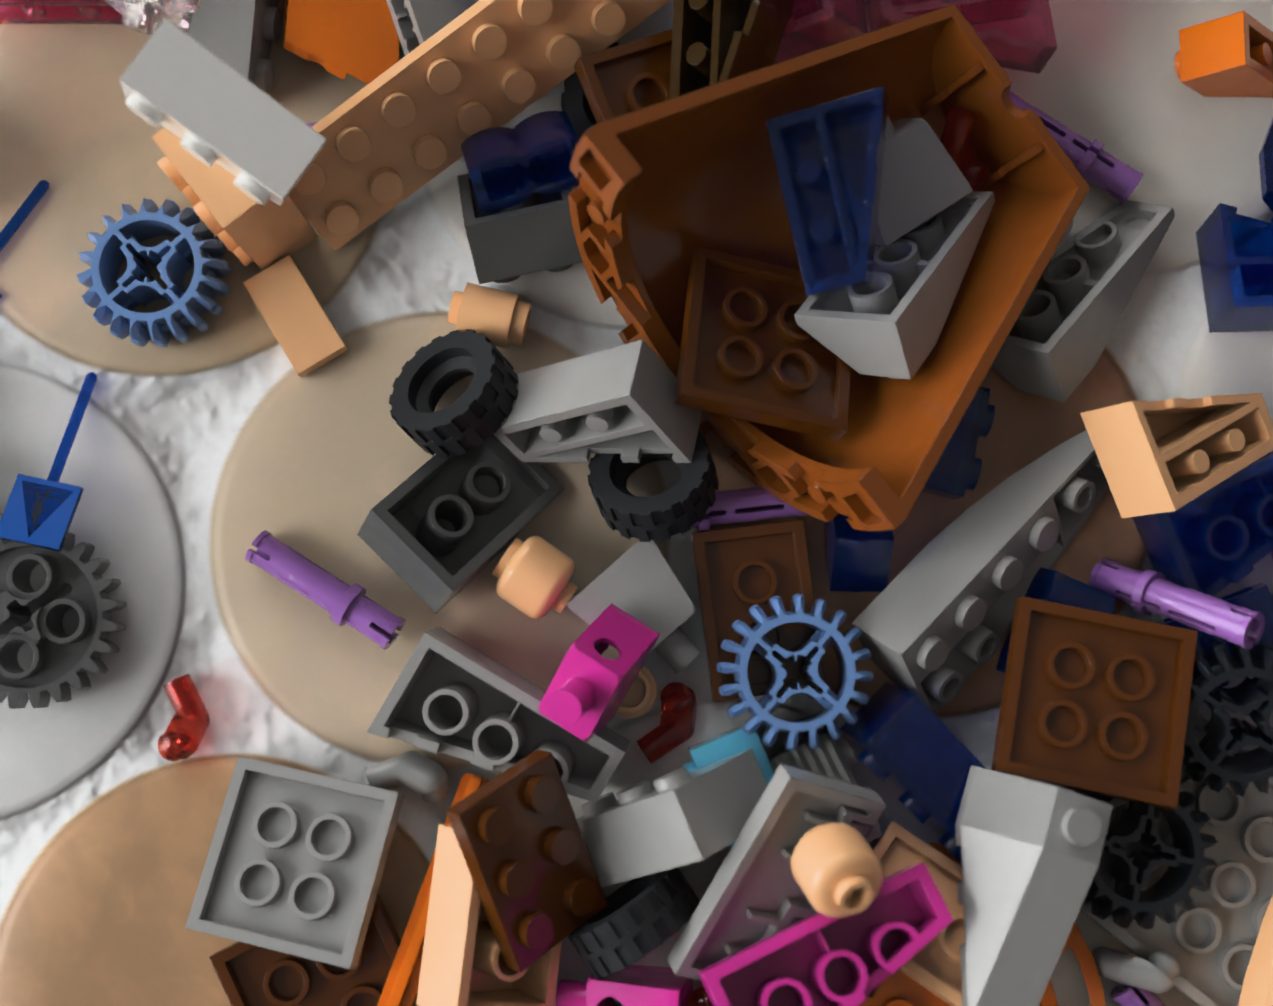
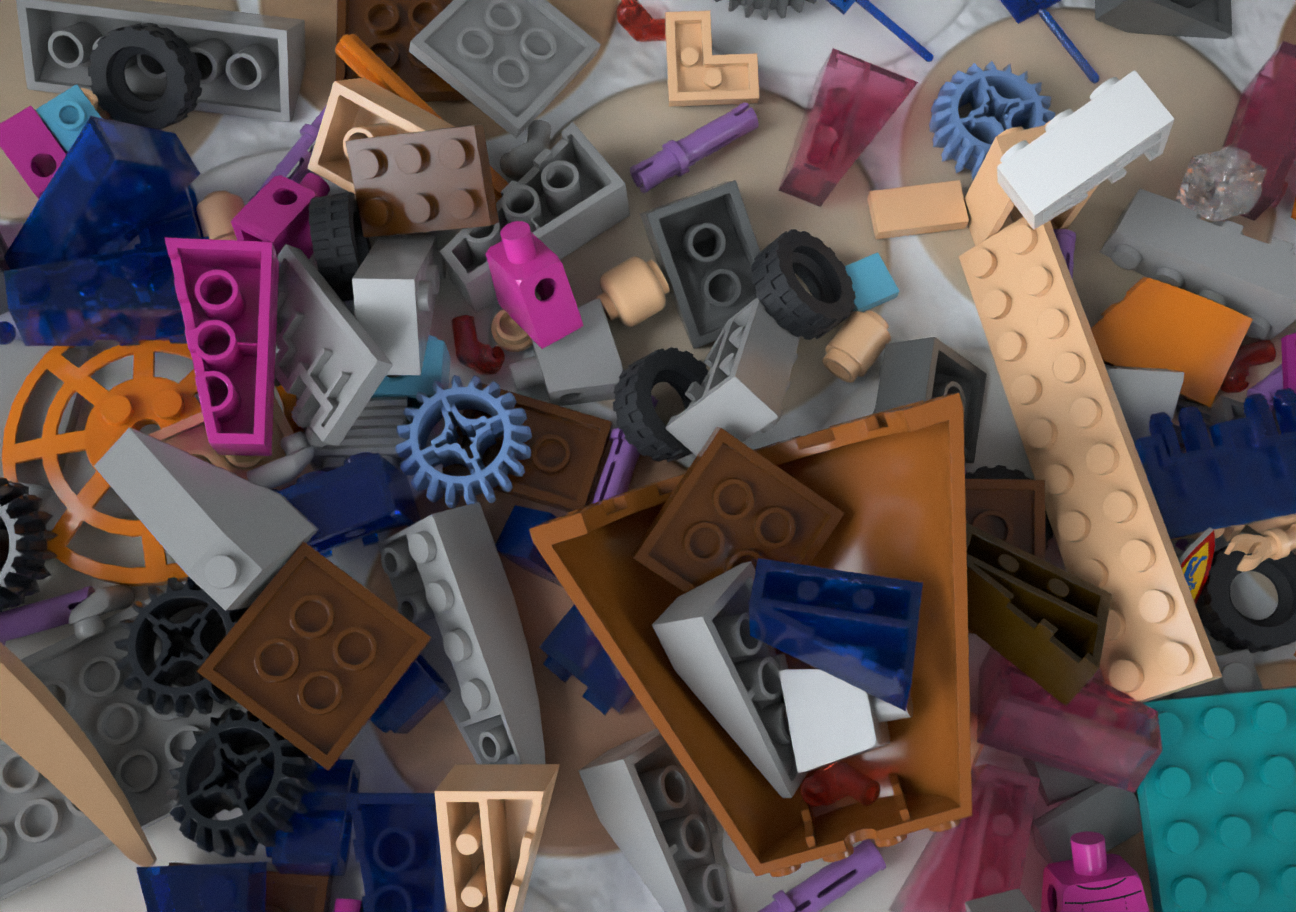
camera: 115 degrees right, 10 degrees down
(231, 625) = (697, 75): none -> light nougat plate
(235, 434) = (841, 120): none -> clear pink wedge
(406, 332) = (871, 283): none -> medium azure tile
(516, 162) = (986, 399): clear blue brick -> none
(836, 867) = (294, 371): light nougat head -> none
(914, 843) = (286, 468): none -> light grey arm
(1152, 593) = (379, 767): medium lavender pin -> none

